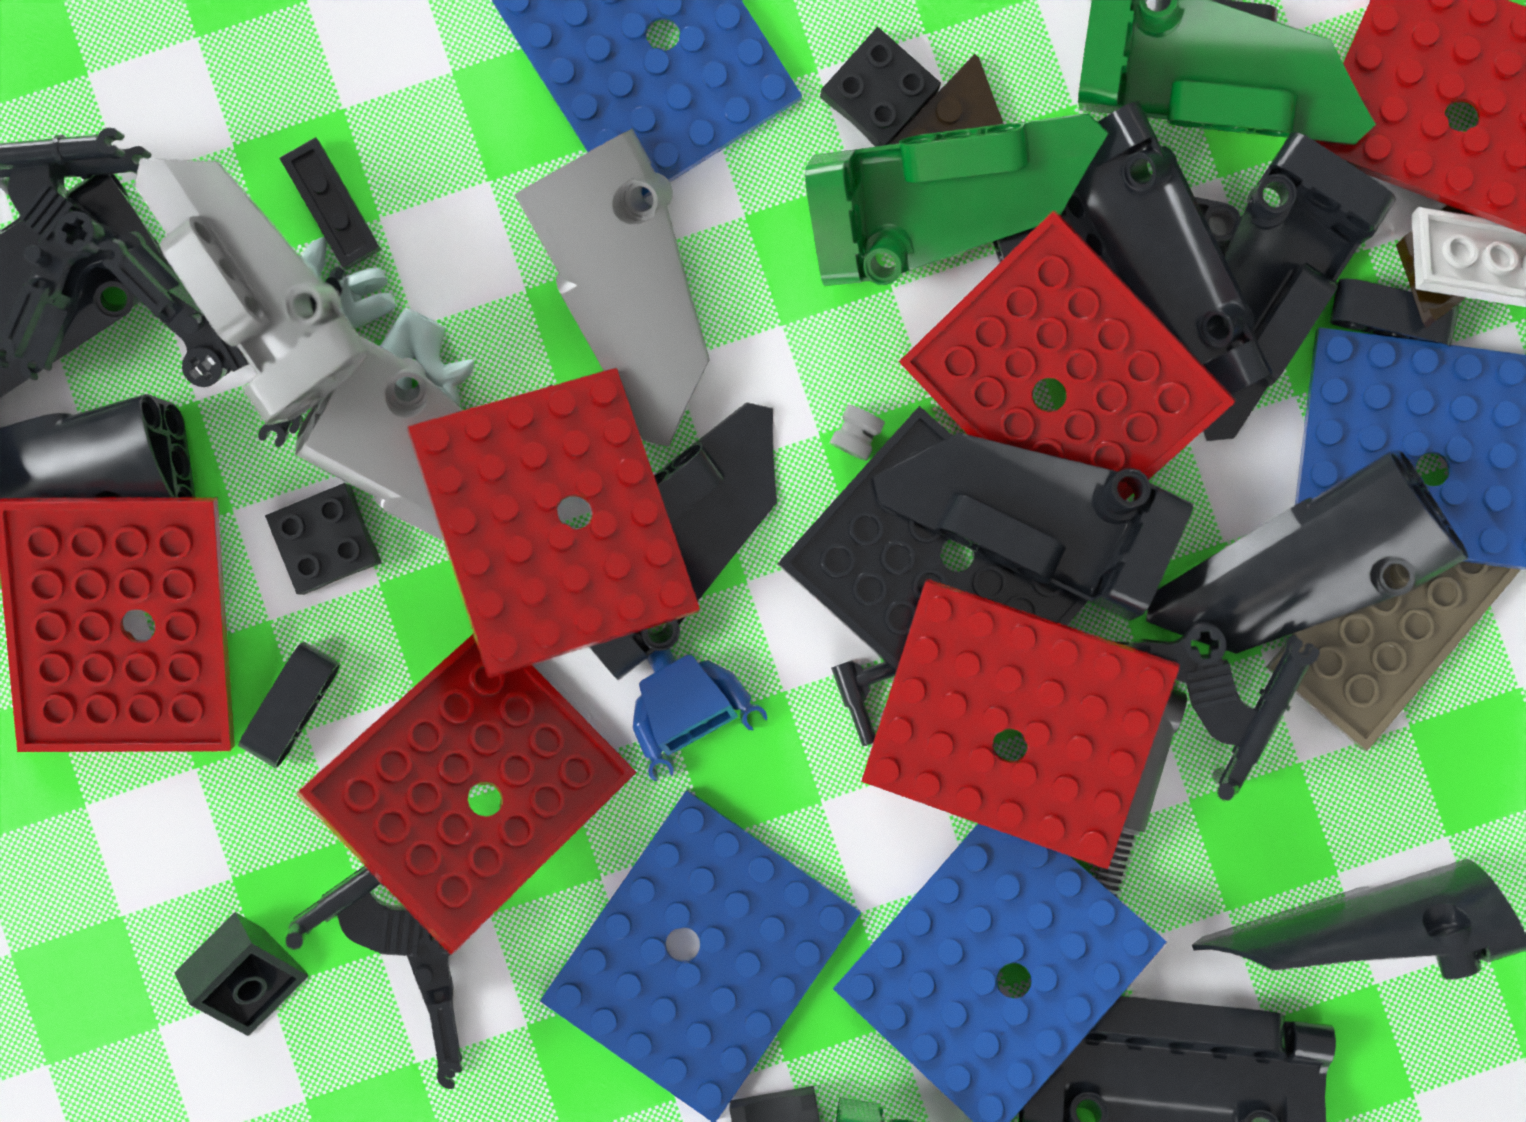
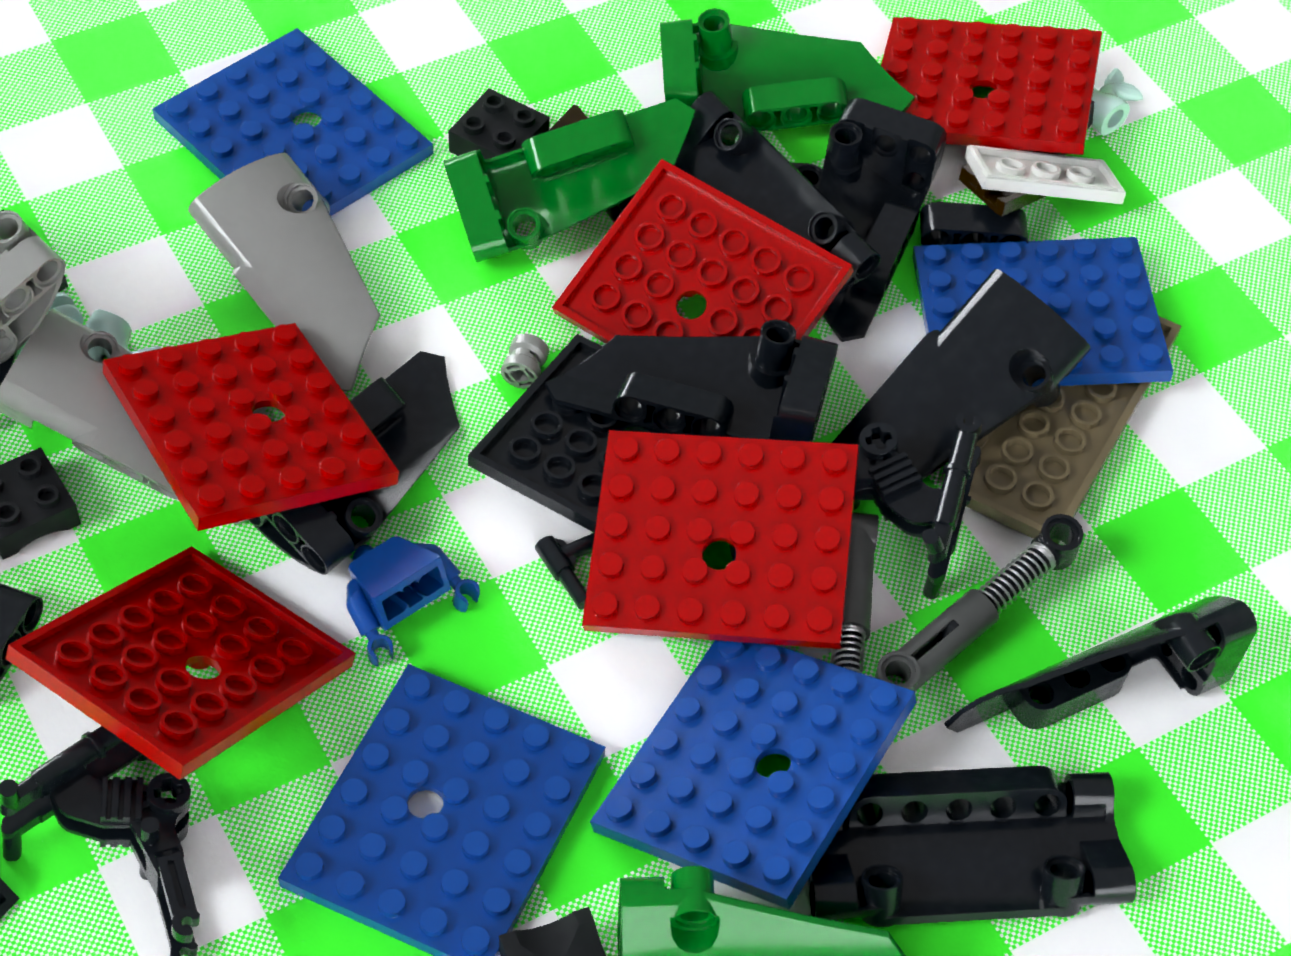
camera: 15 degrees left, 35 degrees down
(1256, 830) = (978, 609): none -> piece

